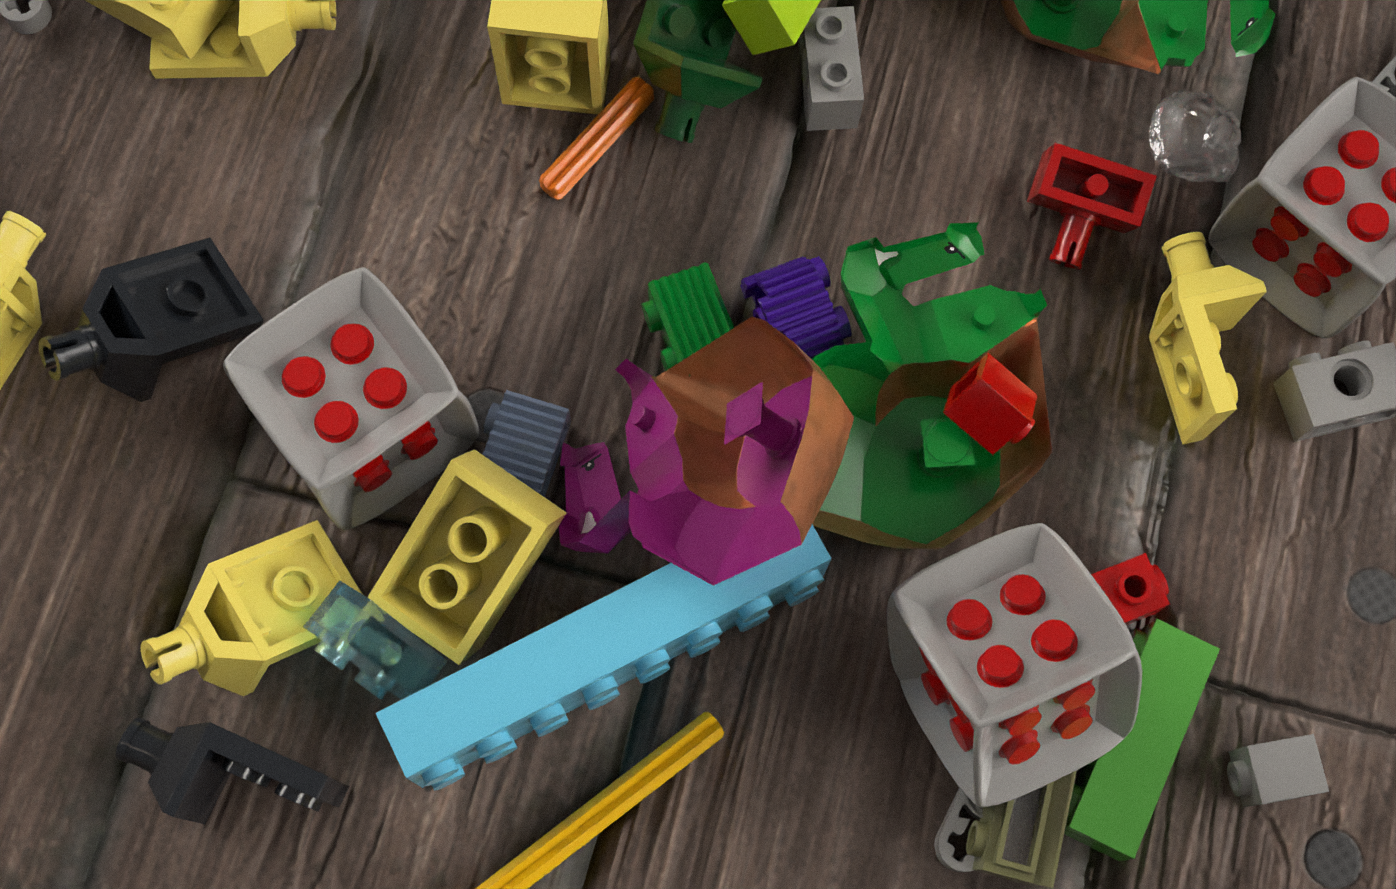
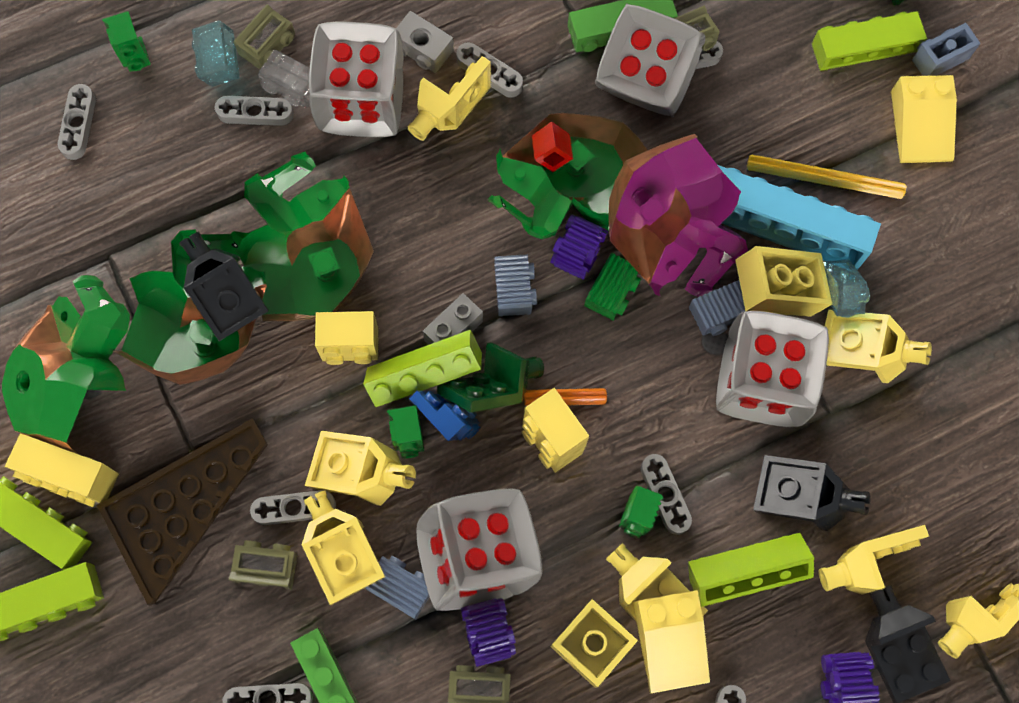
camera: 130 degrees left, 0 degrees up
(139, 154) = (751, 569): none -> lime brick
(197, 760) = (922, 301): black plate -> none
(328, 134) = (650, 477): none -> light grey beam
(345, 74) = (640, 512): none -> green brick
(820, 197) = (513, 285): none -> sand blue brick
(1087, 195) = (422, 184): red brick -> none
(1134, 588) = (574, 61): red brick -> none
(1195, 137) = (358, 164): clear hair -> none
(1230, 443) = (508, 73): none -> light grey beam

